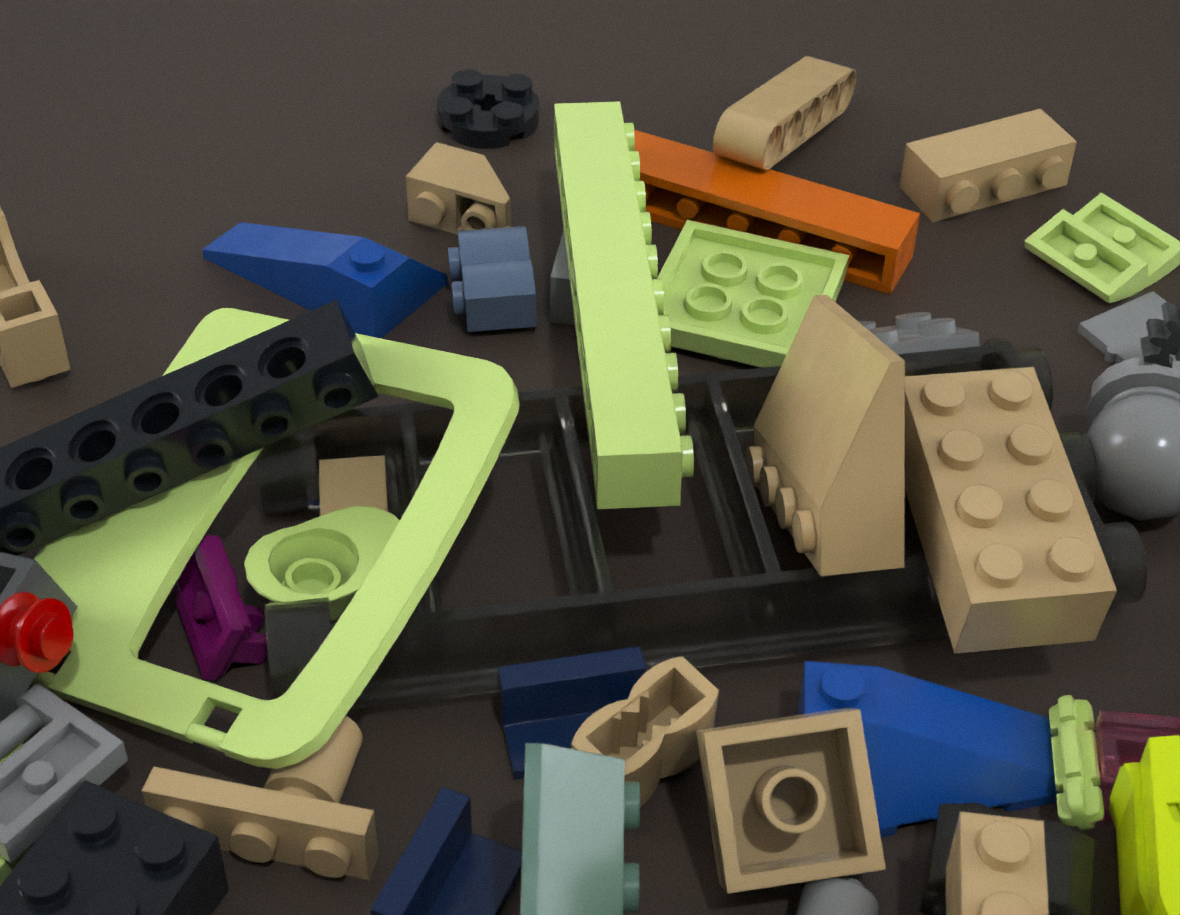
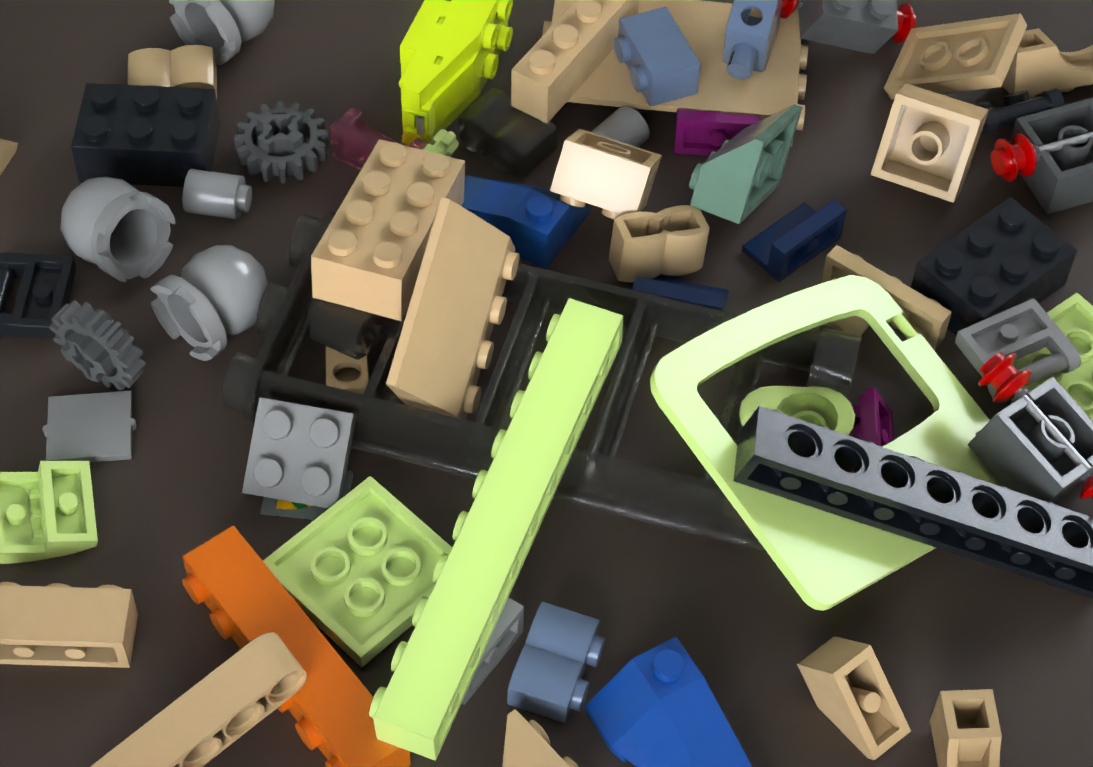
camera: 155 degrees left, 10 degrees up
(152, 338) = (855, 694): none -> tan slope

